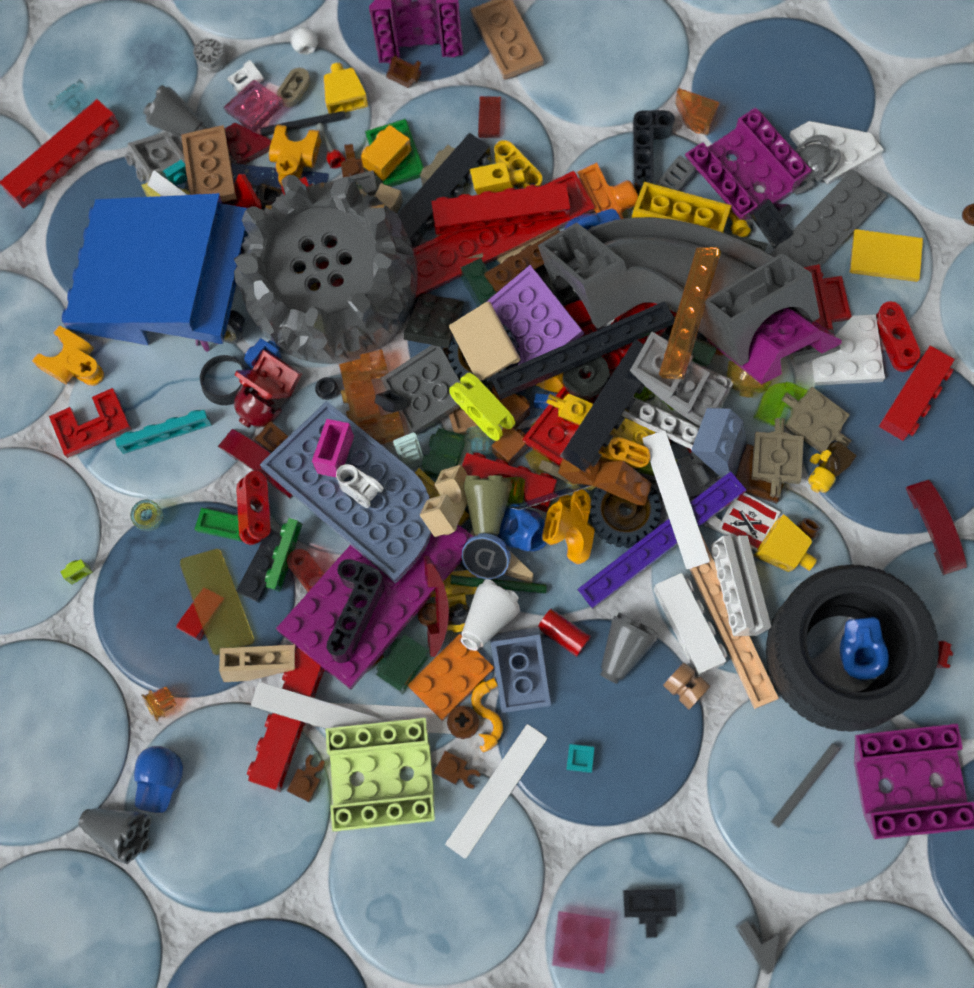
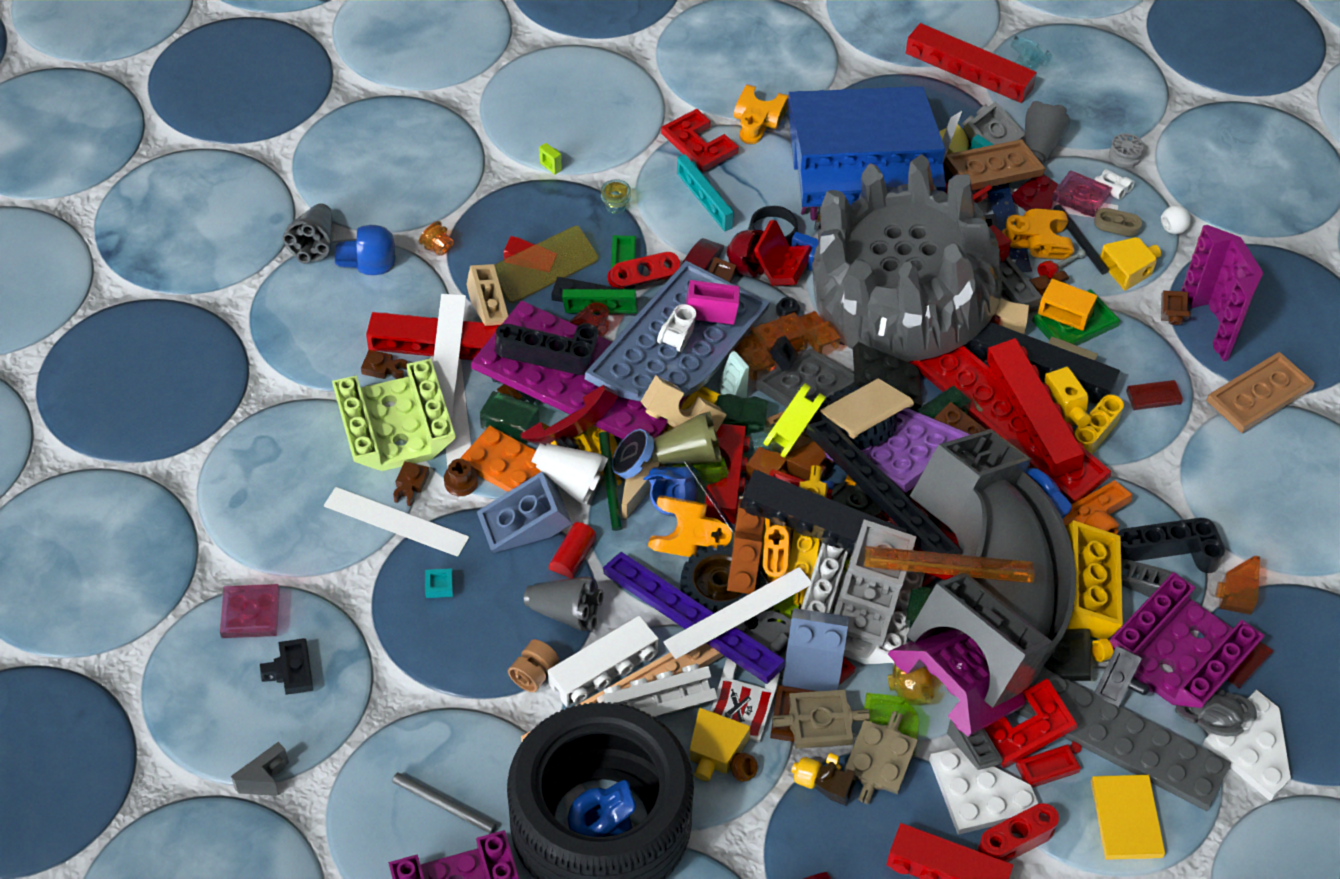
camera: 70 degrees right, 20 degrees down
(479, 691) = (447, 506): light orange animal -> none

